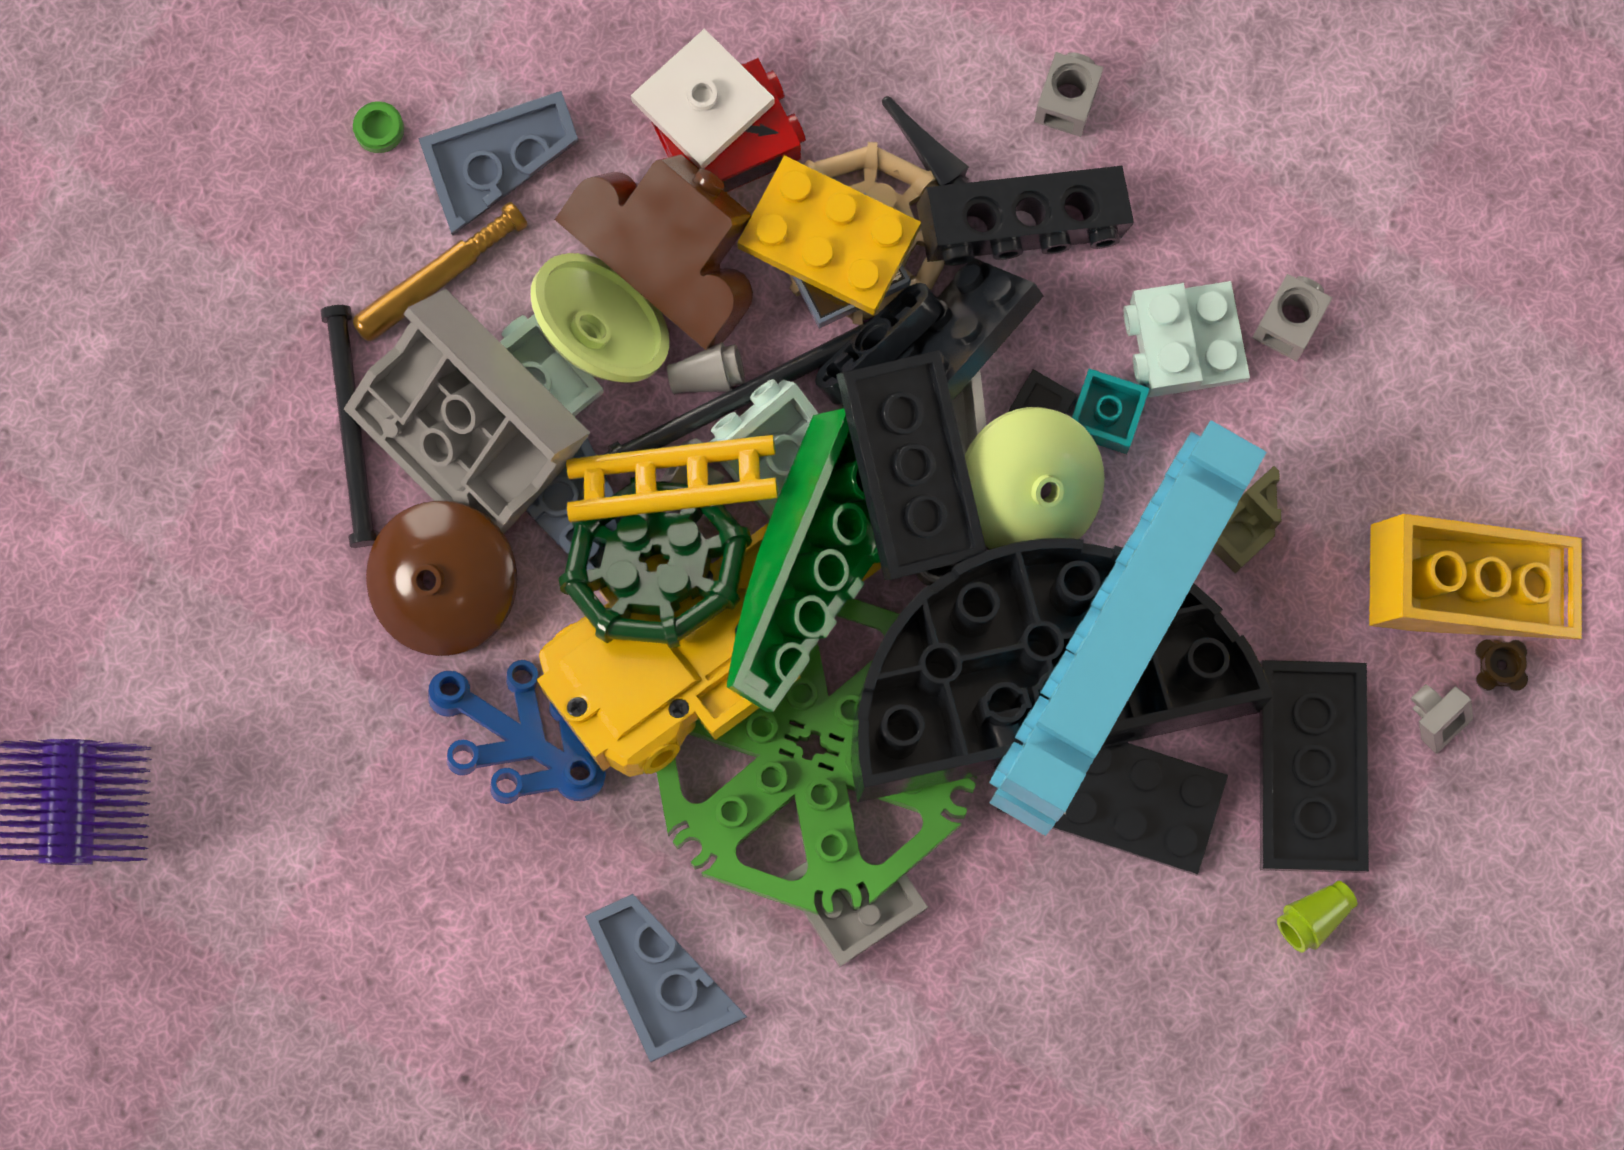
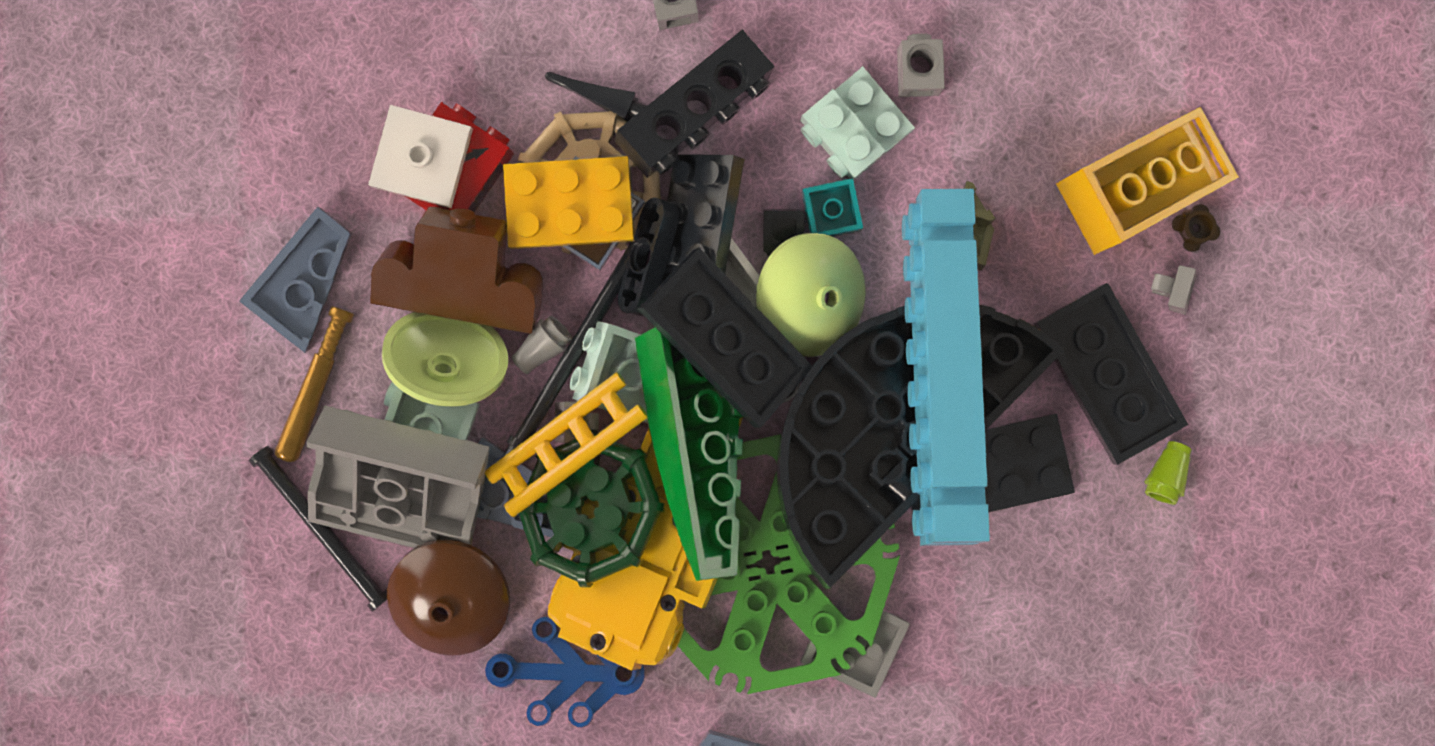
camera: 30 degrees left, 10 degrees up
(378, 127) = (206, 306): bright green tile -> none

